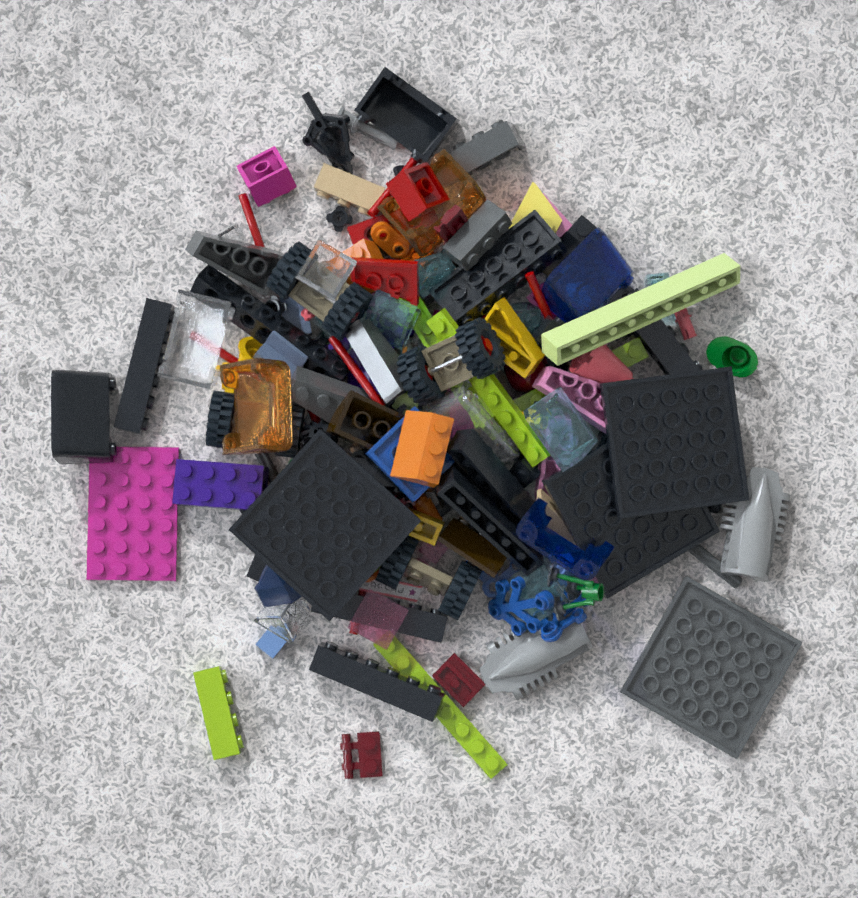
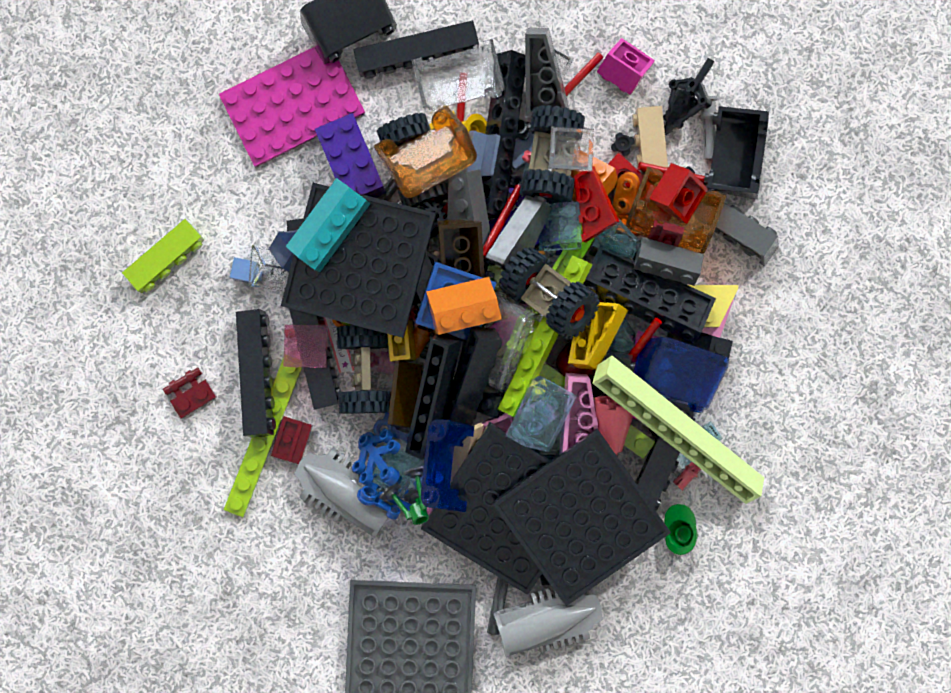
camera: 70 degrees right, 0 degrees up
(277, 536) = (328, 225): none -> teal slope

